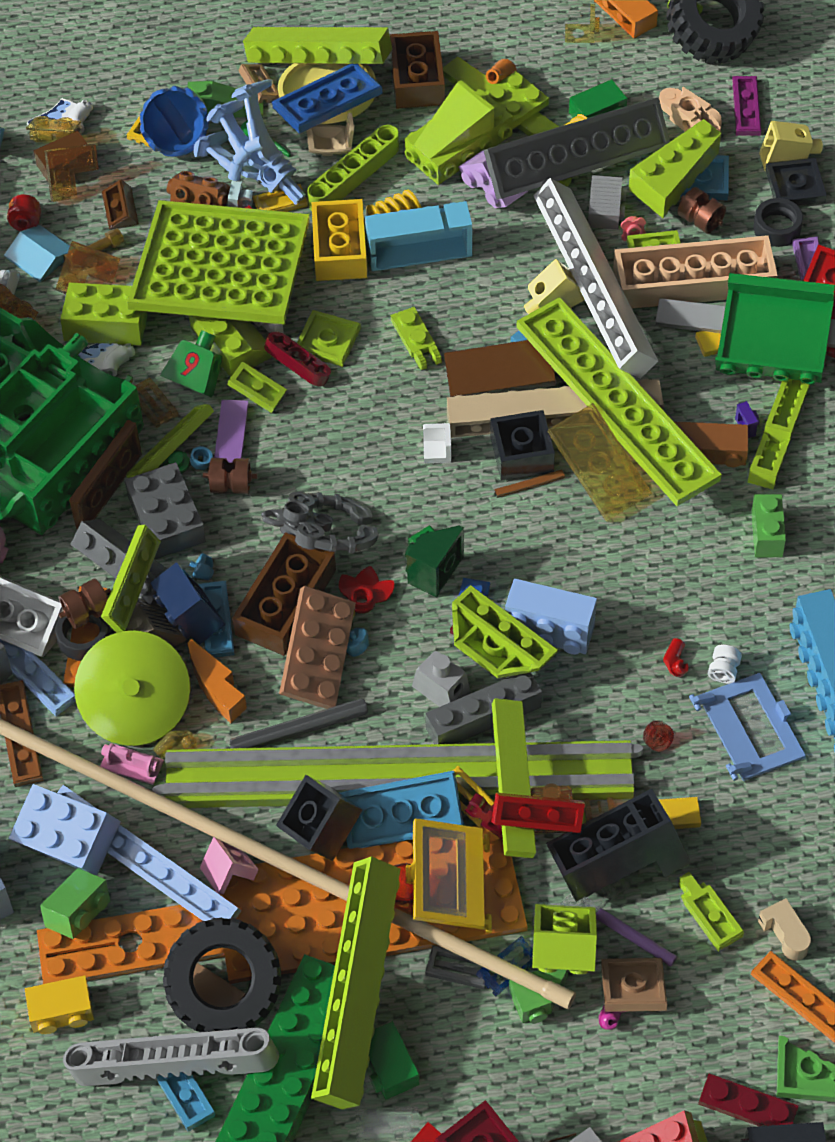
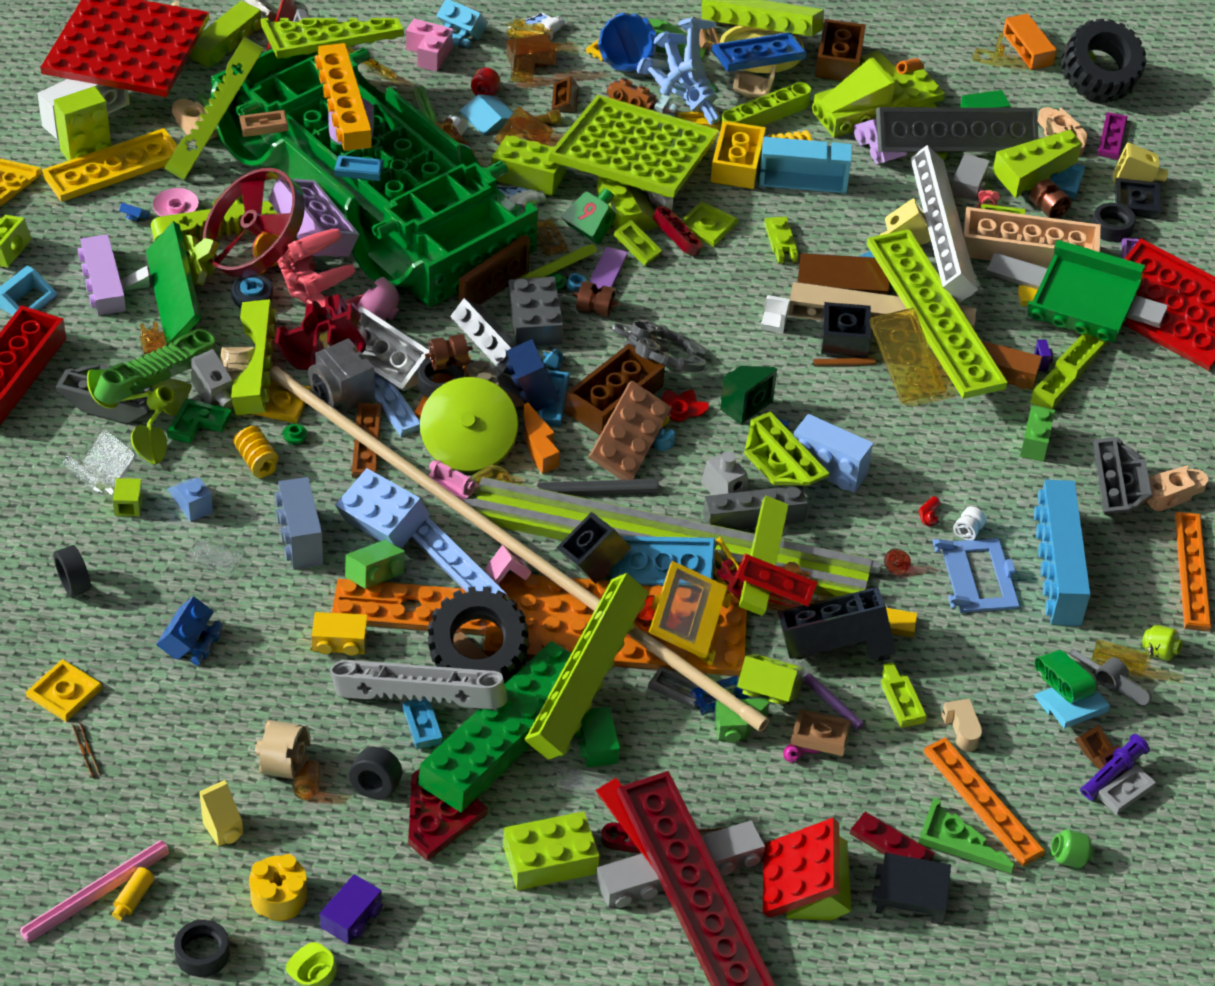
camera: 10 degrees right, 10 degrees down
(130, 579) = (491, 342): lime tile -> none

